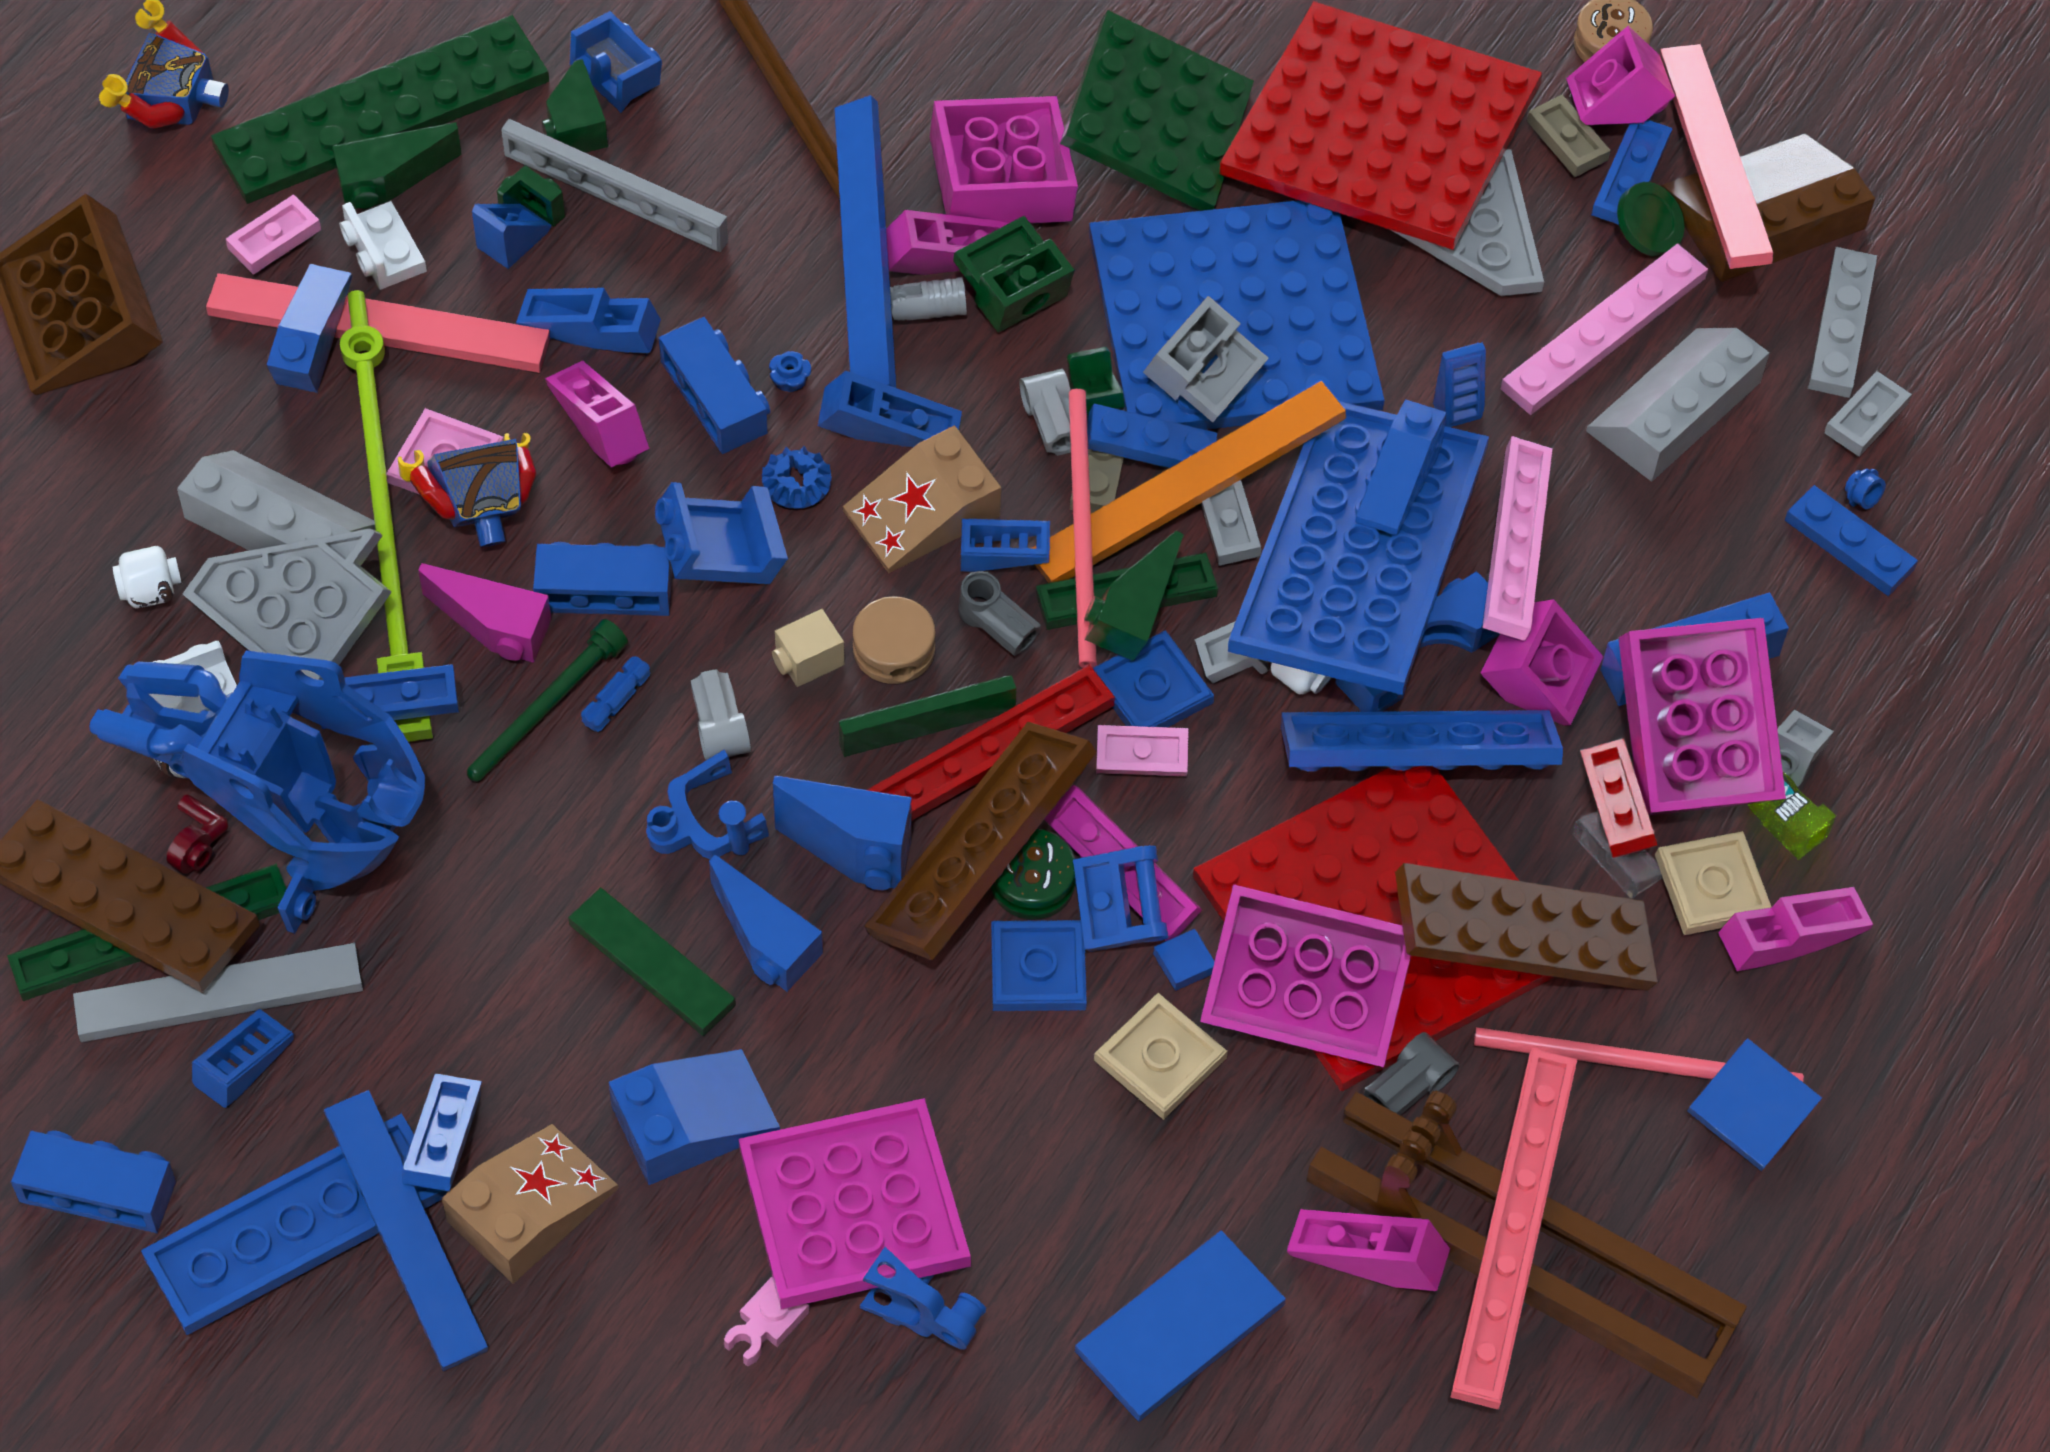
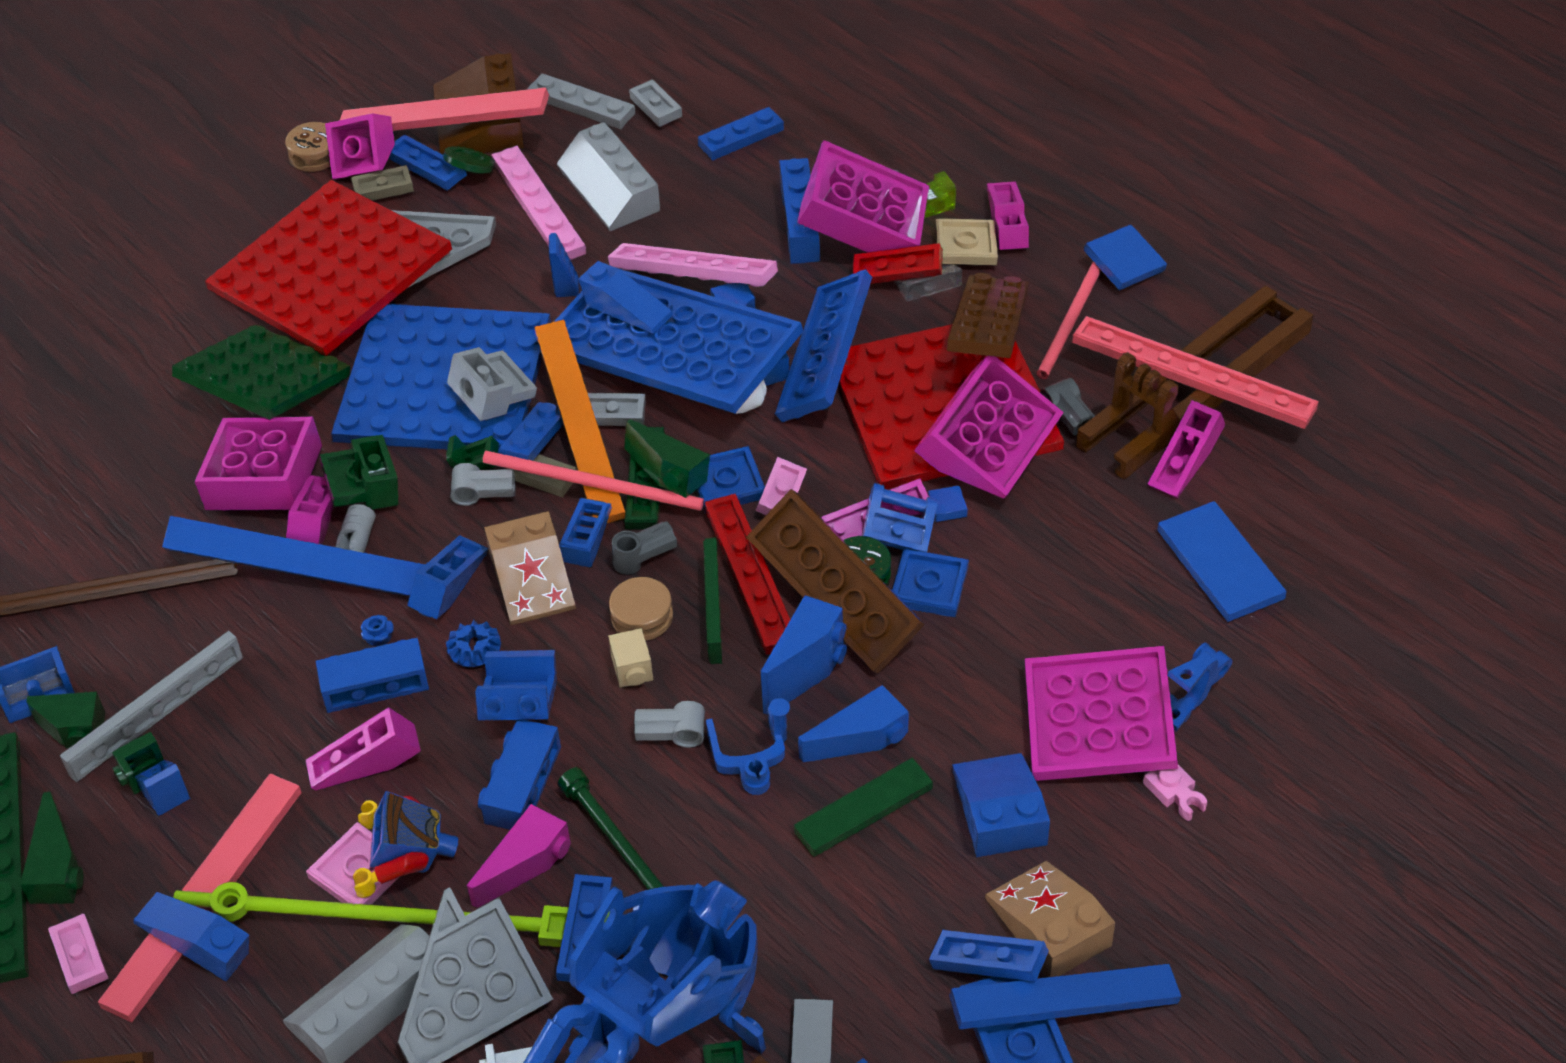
camera: 70 degrees left, 10 degrees down
(382, 244) = (126, 877): white bracket -> none
(591, 318) = (272, 743): blue slope -> none
(615, 694) = (623, 789): blue axle -> none
(1160, 1055) = (1020, 528): tan plate -> none
(1219, 662) = (718, 429): light grey bracket -> none
(1547, 668) = (789, 287): dark pink slope -> none
(1865, 488) = (708, 117): blue plate -> none

